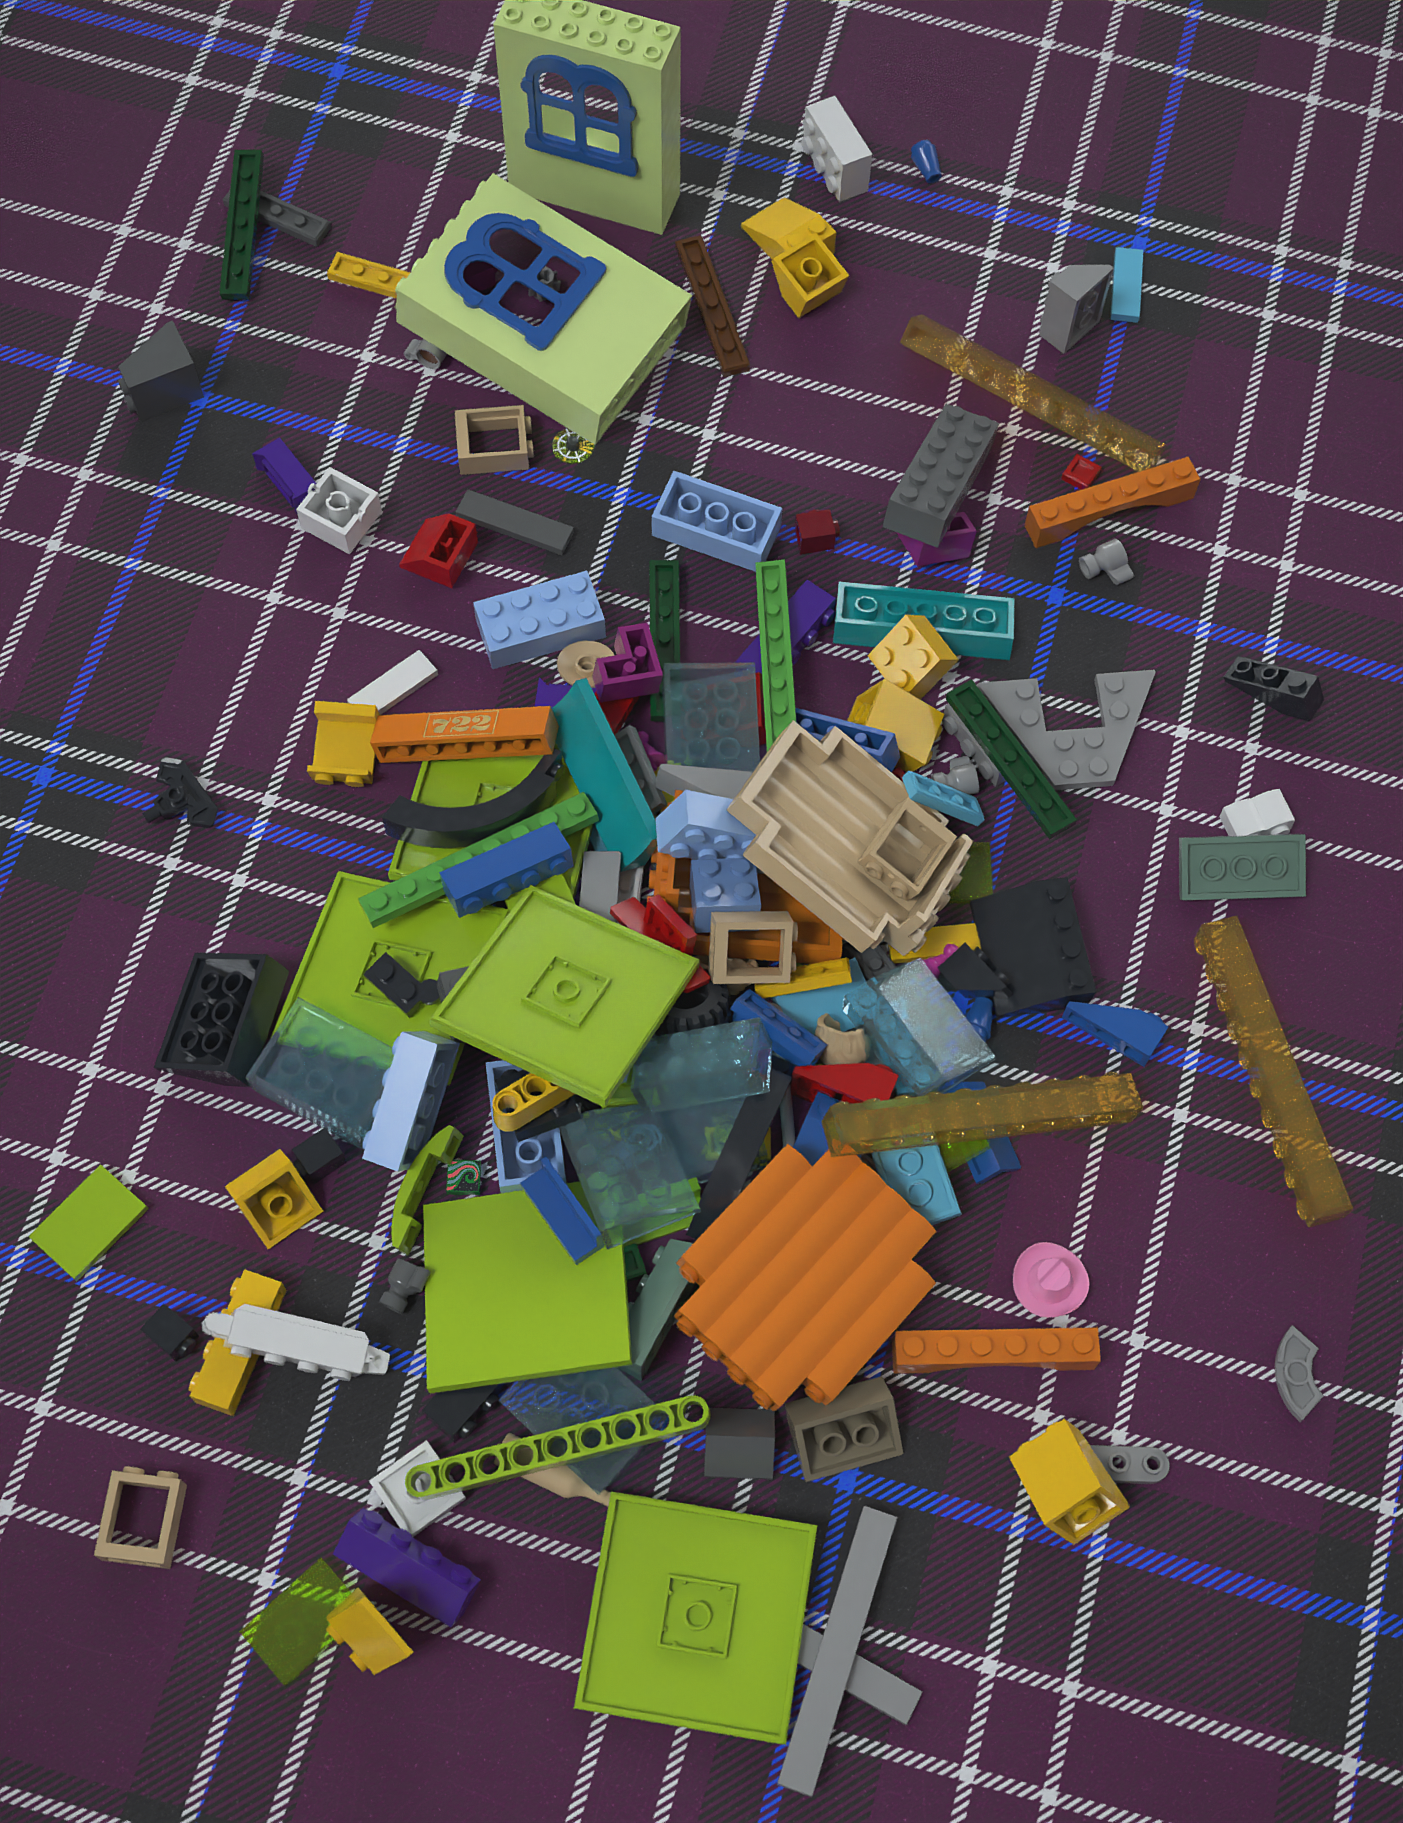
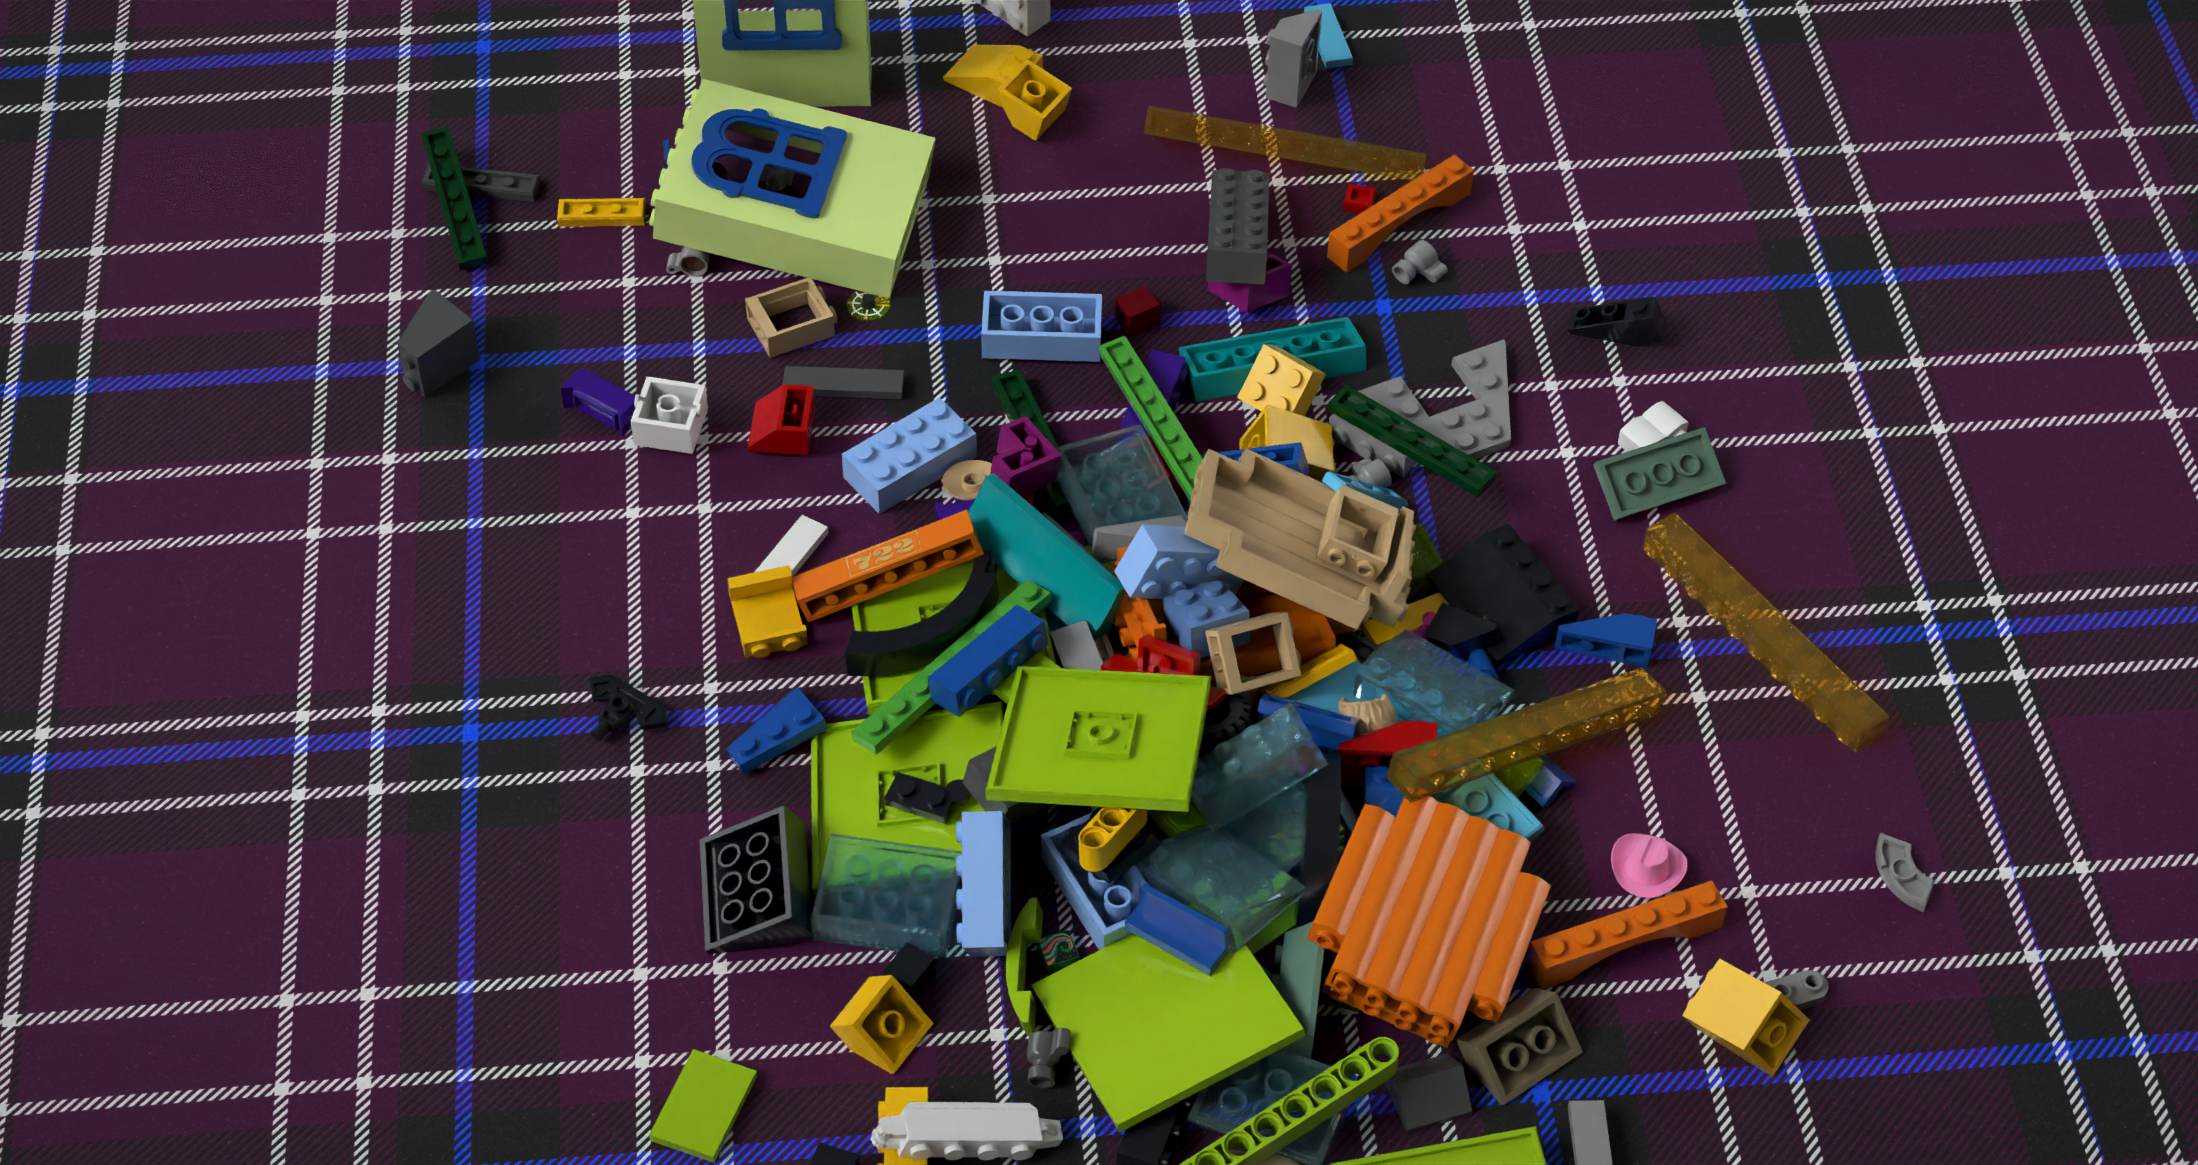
camera: 20 degrees left, 15 degrees down
(305, 868) = (777, 731): none -> blue wing
(712, 306) = (950, 153): reddish brown tile -> none

